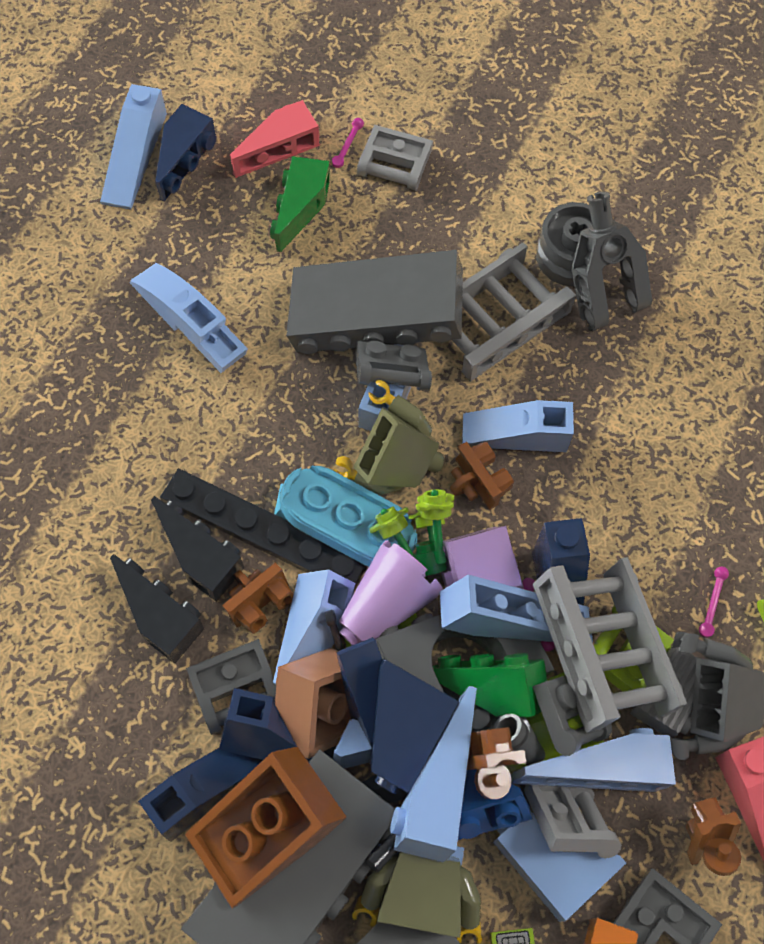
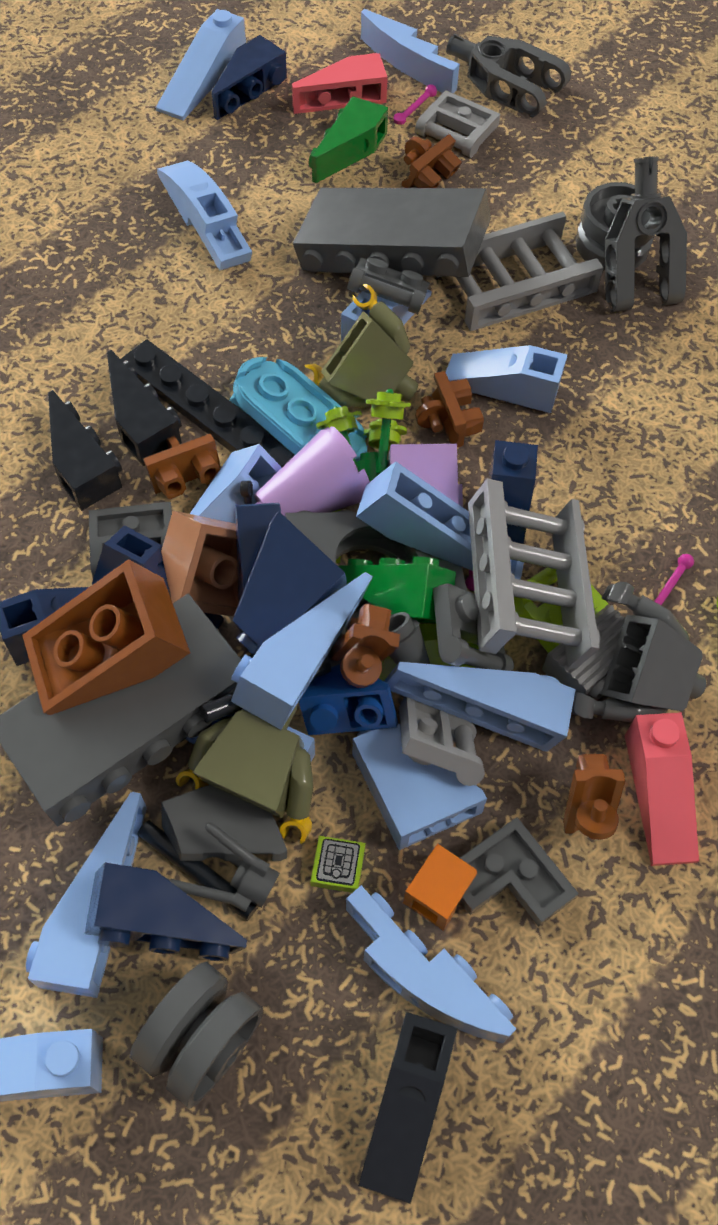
camera: 15 degrees right, 5 degrees down
(317, 83) = (407, 53): none -> light blue slope
(353, 746) = (222, 611): light blue slope -> none
(392, 202) = (426, 158): none -> dark orange hips
(410, 73) = (503, 60): none -> dark grey piece

